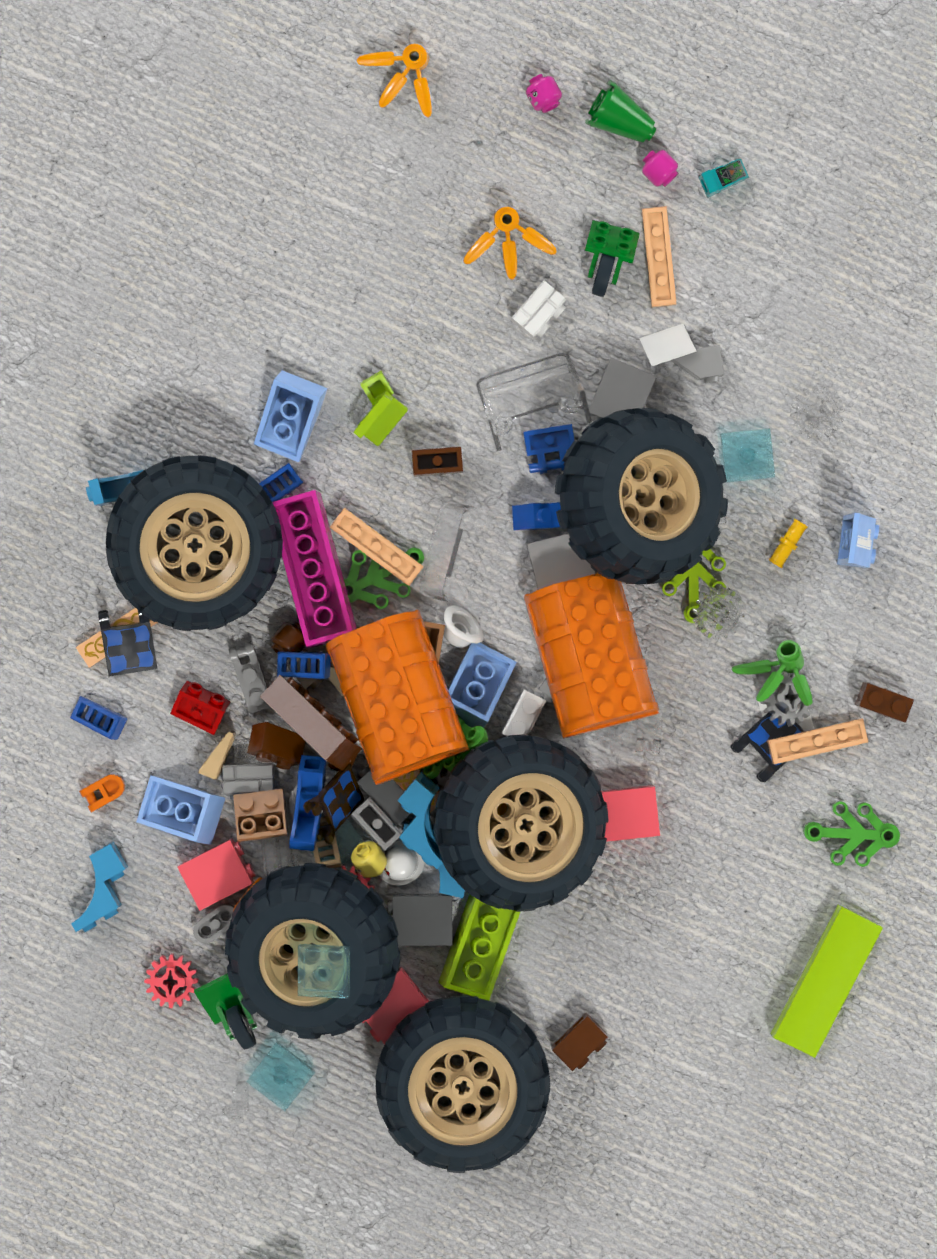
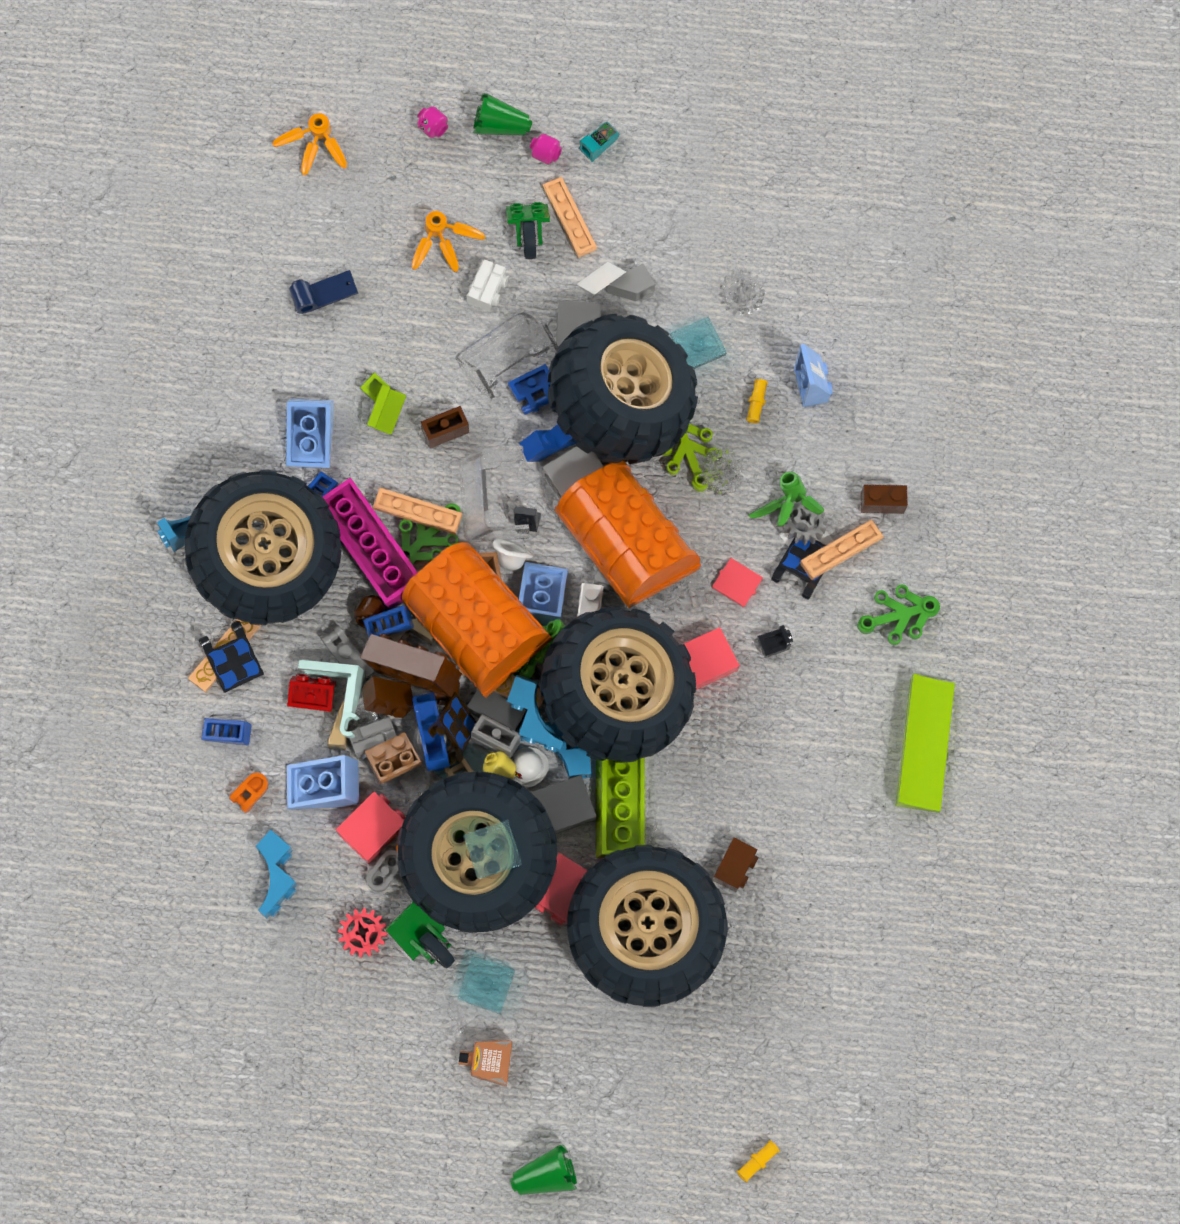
camera: 20 degrees left, 15 degrees down
(242, 724) = (355, 681): none -> light aqua hinge
(257, 1155) = (489, 1061): none -> nougat torso
(344, 256) = (322, 293): none -> dark blue door
(491, 595) = (527, 516): none -> black bracket
(692, 737) = (737, 582): none -> coral piece
(708, 819) = (775, 641): none -> black bracket

